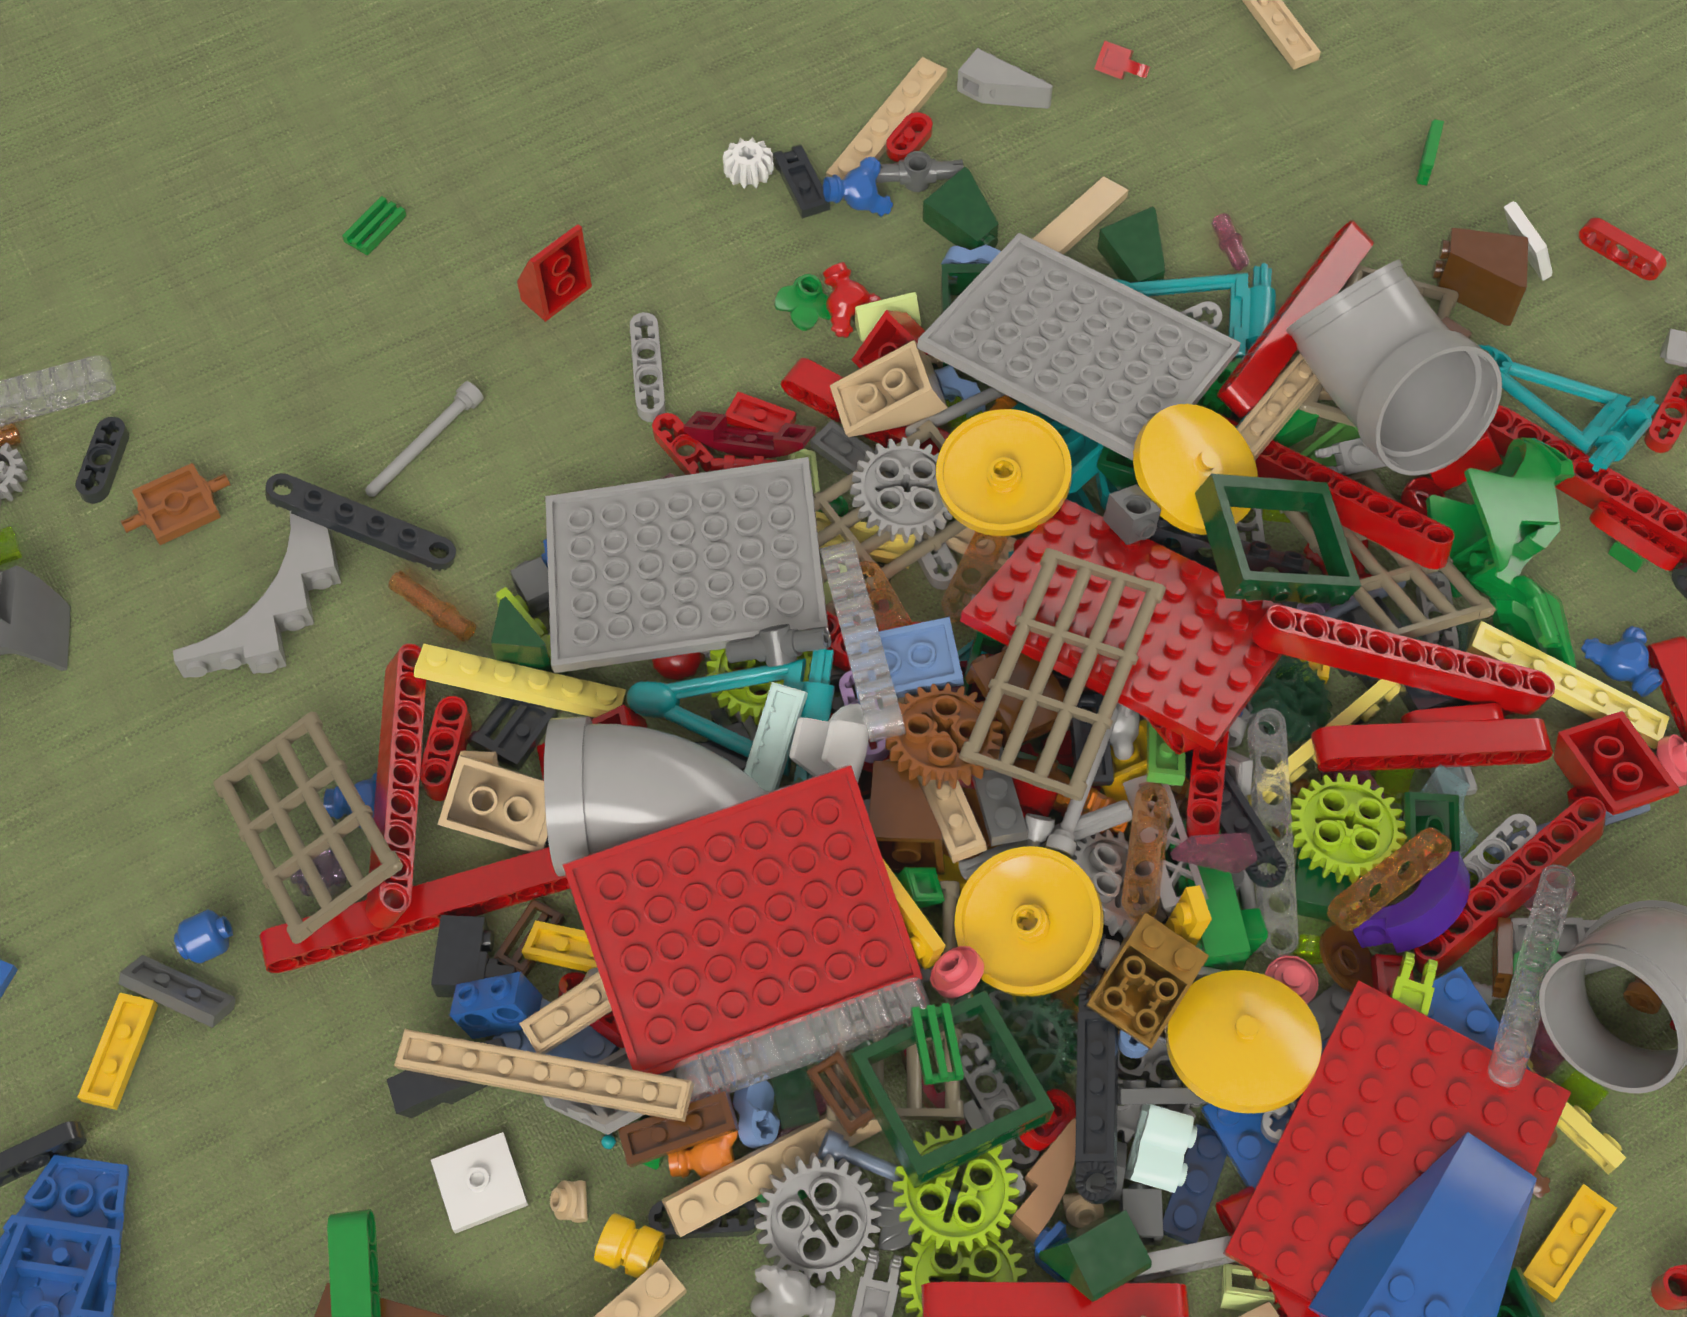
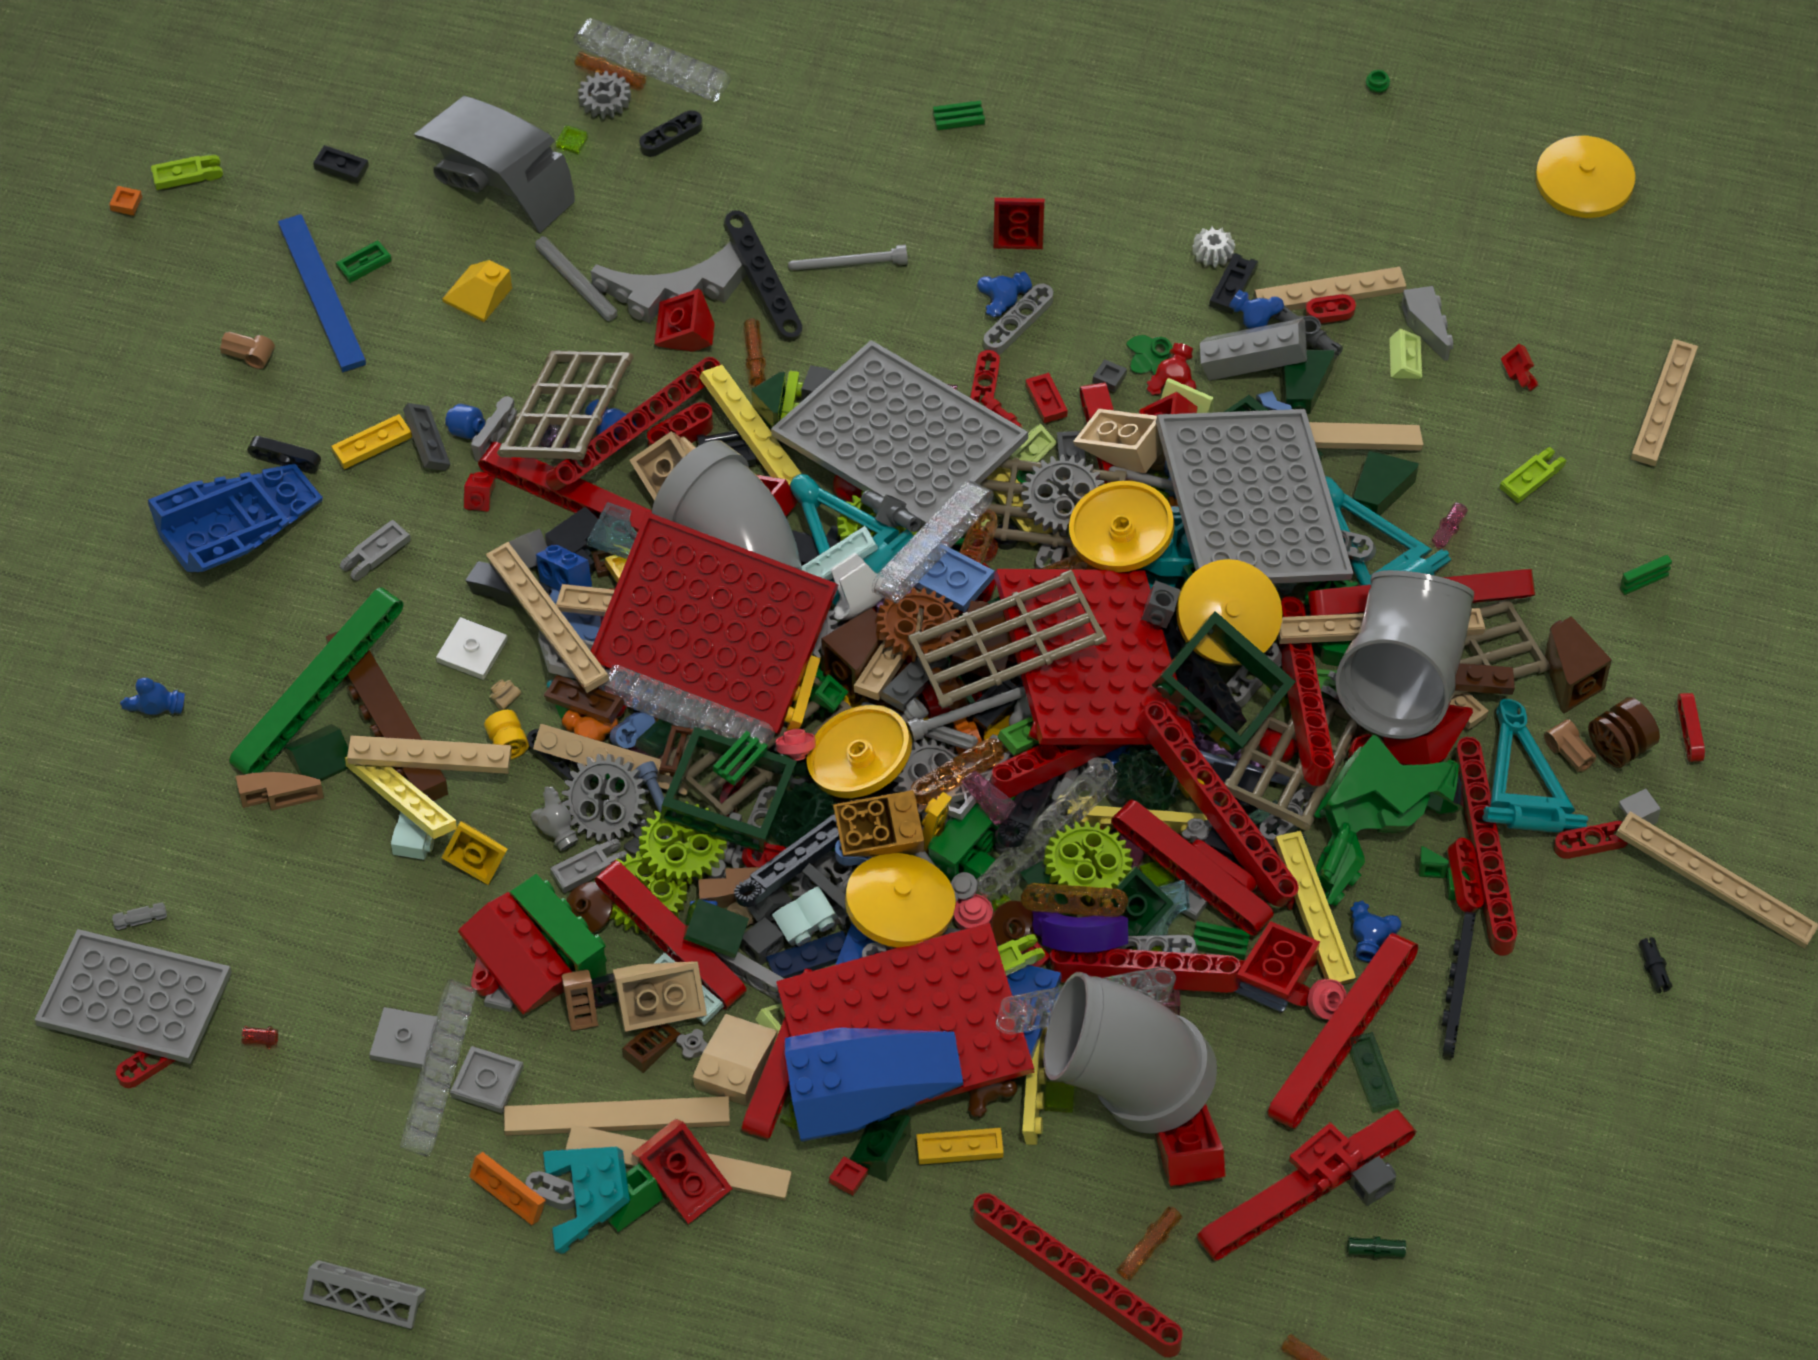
camera: 45 degrees right, 5 degrees down
(64, 781) = (480, 289): none -> yellow slope
(160, 683) = (575, 277): none -> light grey axle
(176, 503) = (682, 188): dark orange plate -> none
(243, 916) = (495, 427): none -> light grey hinge
(252, 1168) = (375, 549): none -> light grey hinge
(299, 999) = (478, 491): none -> red bracket
(329, 634) = (685, 322): none -> red slope
(424, 1011) = (528, 546): none -> light grey panel
(509, 916) = (613, 531): none -> clear light blue tile
(607, 351) = (1003, 291): none -> blue animal
(713, 431) = (1011, 388): dark red slope -> none
(791, 348) = (1110, 374): none -> dark grey plate
(897, 218) = (1254, 349): none -> light grey slope
(1014, 129) = (1405, 355): none -> yellowish green slope
(1241, 146) = (1531, 475): none -> lime hinge
(1265, 961) = (964, 885): none -> light grey plate
(1395, 712) = (1197, 830): none -> light grey plate
(1537, 249) = (1626, 668): white plate -> none
(1538, 778) = (1221, 935): none -> green tile
(1549, 345) = (1567, 741): none -> medium nougat piece
(1591, 552) = (1432, 864): none -> green slope
(1595, 295) = (1624, 732): none -> reddish brown wheel

